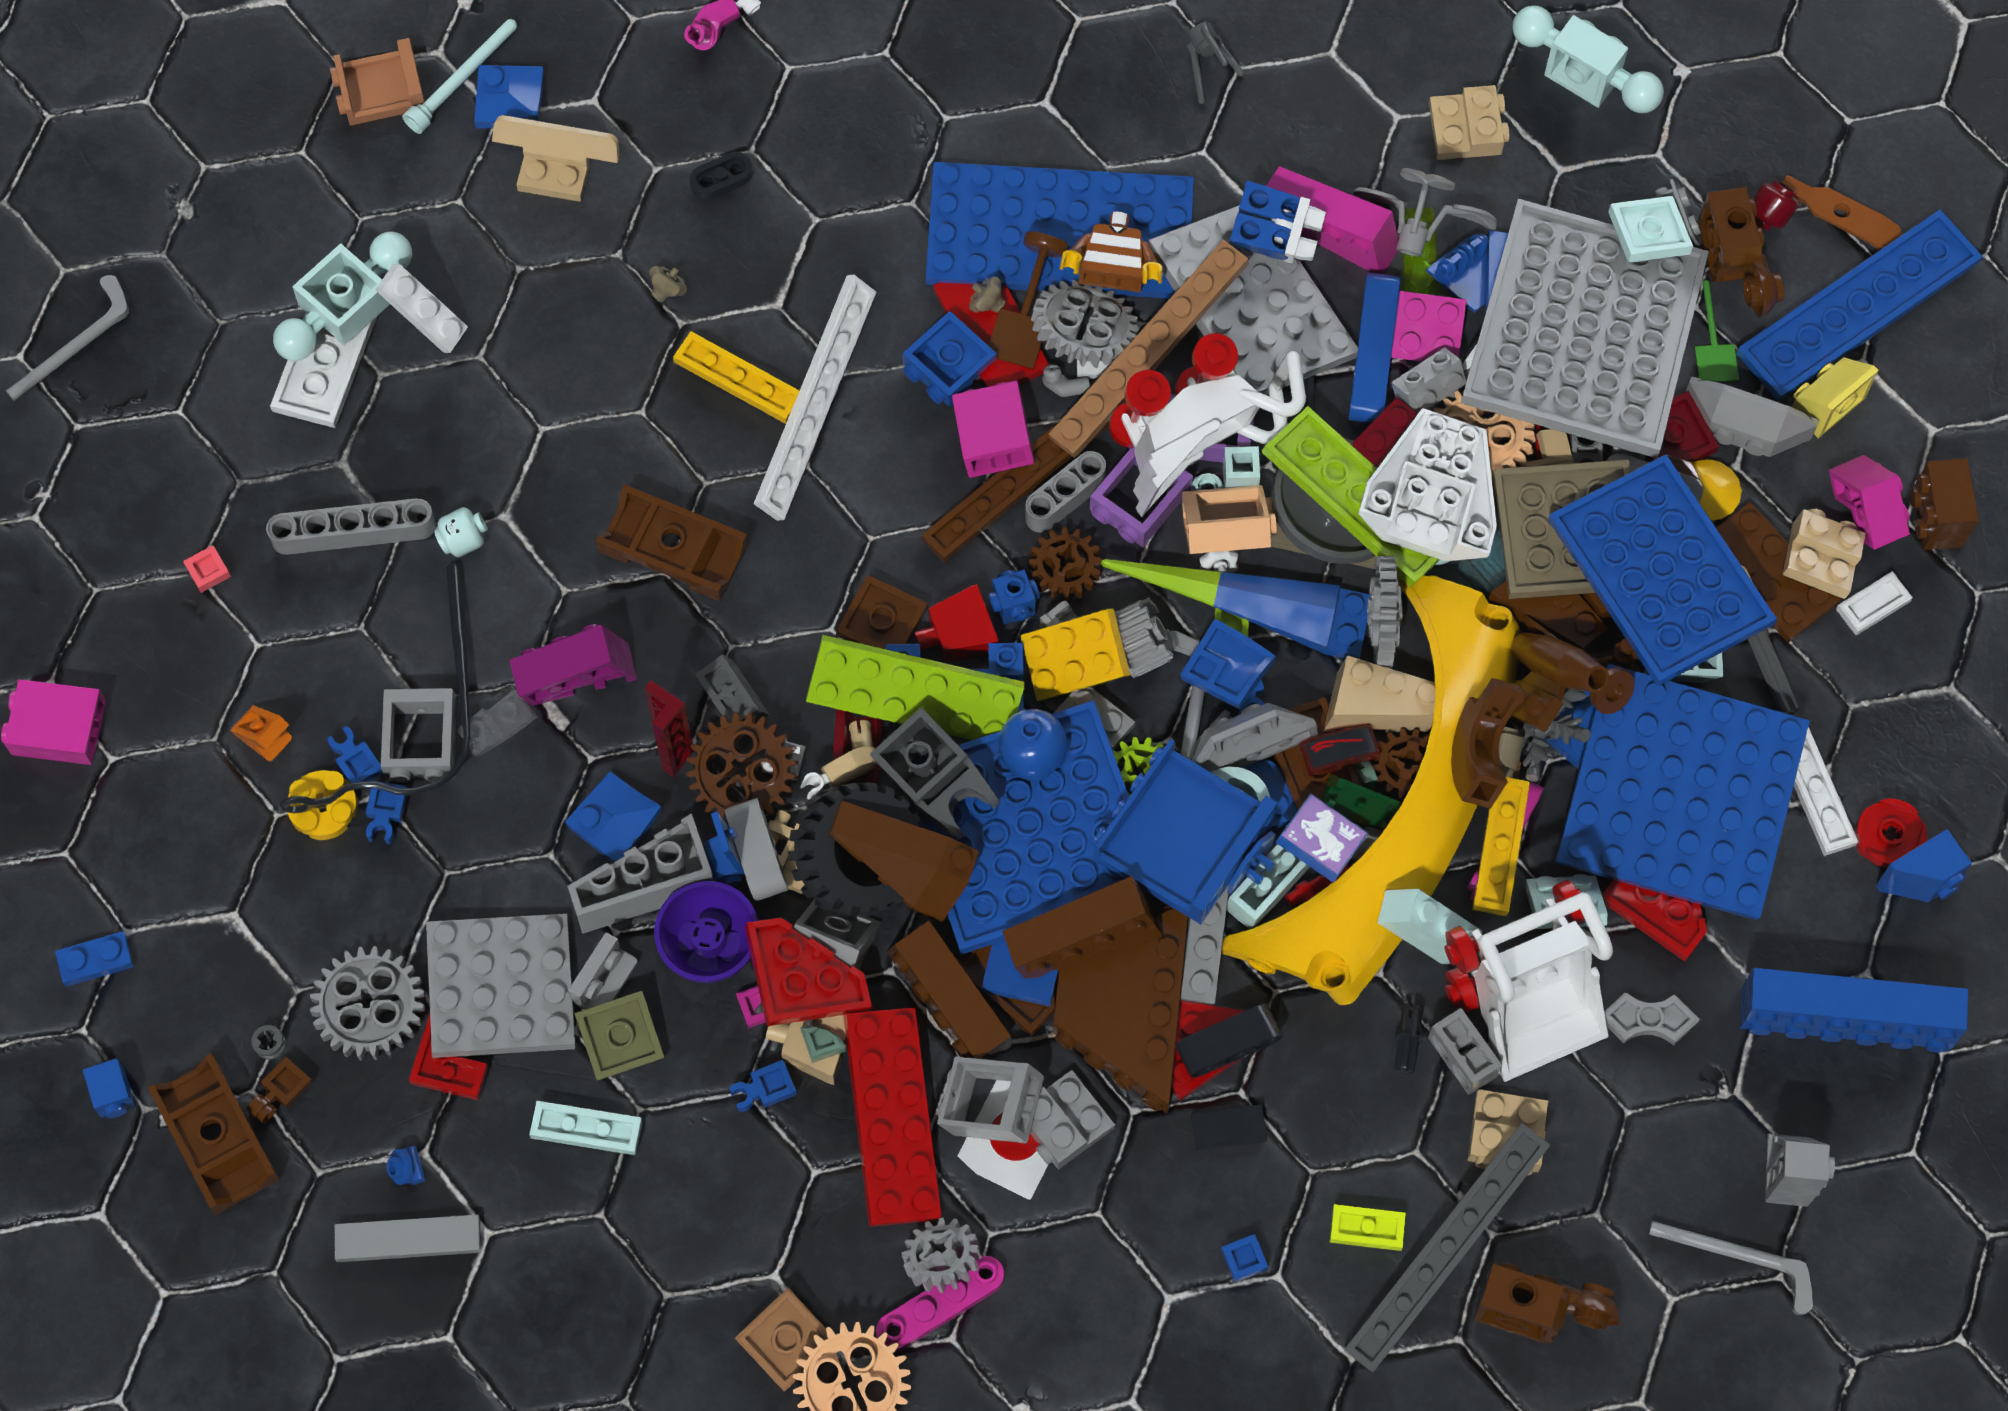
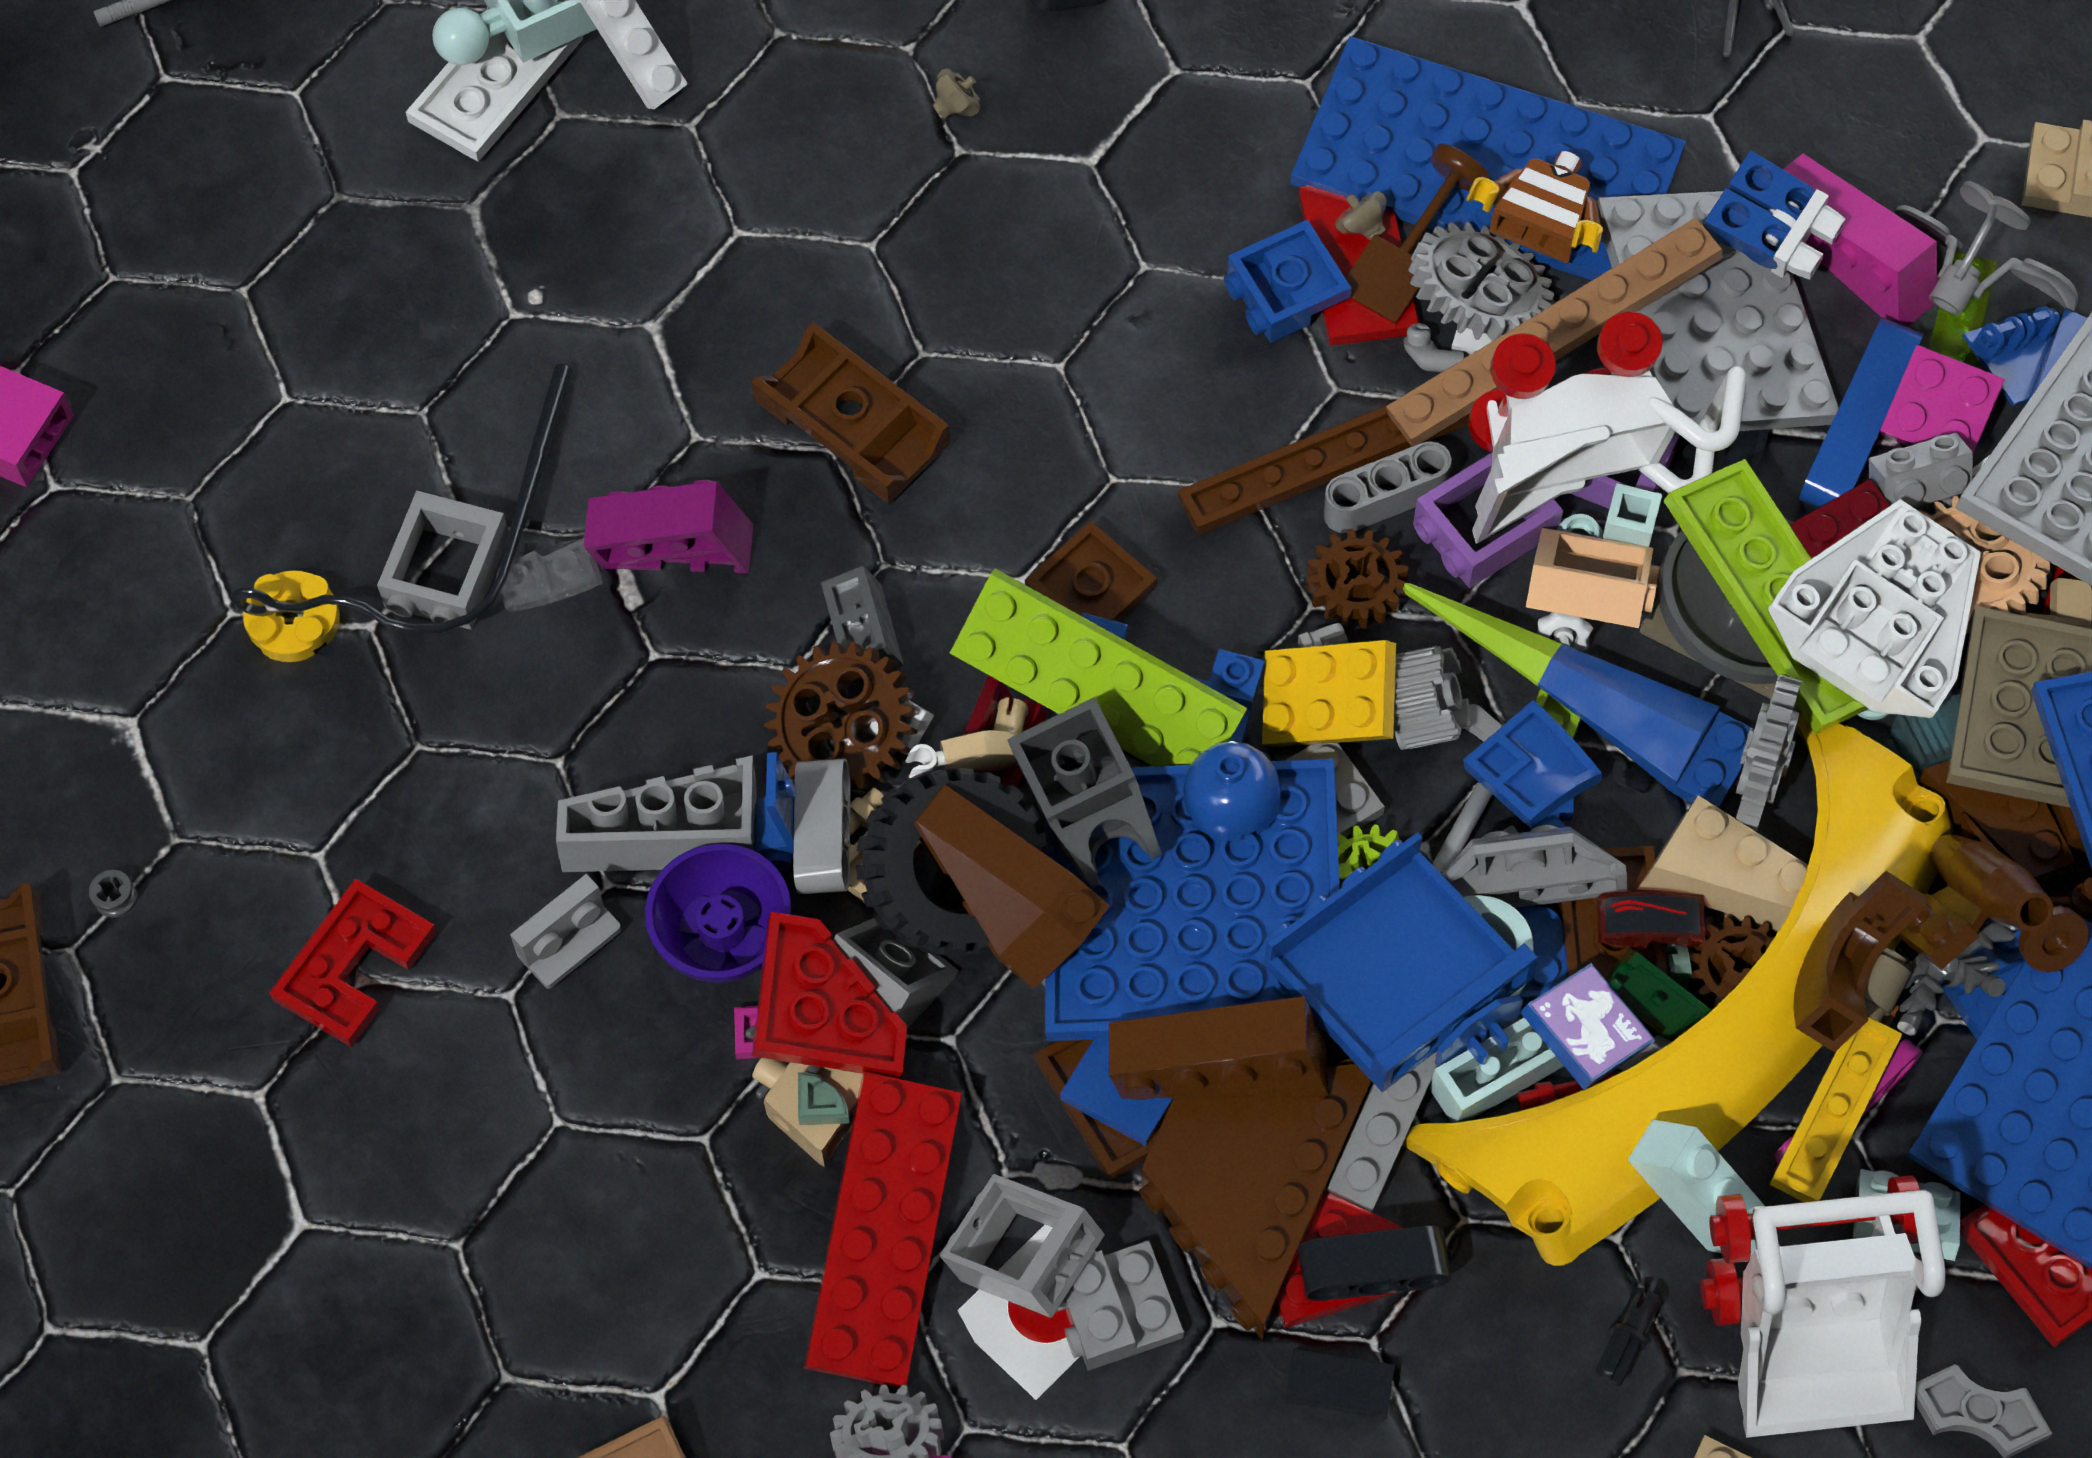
camera: 20 degrees right, 5 degrees down
(207, 568) = (255, 287): coral plate -> none
(263, 732) = (250, 506): orange slope -> none
(284, 1084) = (110, 952): reddish brown plate -> none
(337, 518) = (436, 270): light grey beam -> none
(356, 761) = (353, 571): blue plate -> none
(370, 1033) = (243, 917): light grey gear -> none
(384, 809) = (365, 642): blue plate -> none
(405, 1166) = (226, 1104): blue plate -> none
(407, 1238) = (195, 1198): light grey tile -> none
(460, 532) = (586, 327): light aqua head -> none
(499, 985) = (429, 906): light grey plate -> none
(586, 1127) = (476, 1124): light aqua plate -> none
(613, 817) = (655, 735): blue plate -> none
(619, 1035) = (561, 1016): olive plate -> none
(669, 727) = (755, 636): dark red fence -> none
(736, 376) = (1008, 234): yellow plate -> none
(769, 1085) = (737, 1140): blue plate -> none
(815, 398) = (1097, 284): white tile -> none
(948, 992) = (1014, 1086): reddish brown wedge -> none
(959, 627) = (1187, 619): red torso -> none
(992, 429) = (1315, 381): dark pink brick -> none
(1013, 596) = (1274, 600): blue brick -> none
(1464, 1051) = (1701, 1376): light grey brick -> none

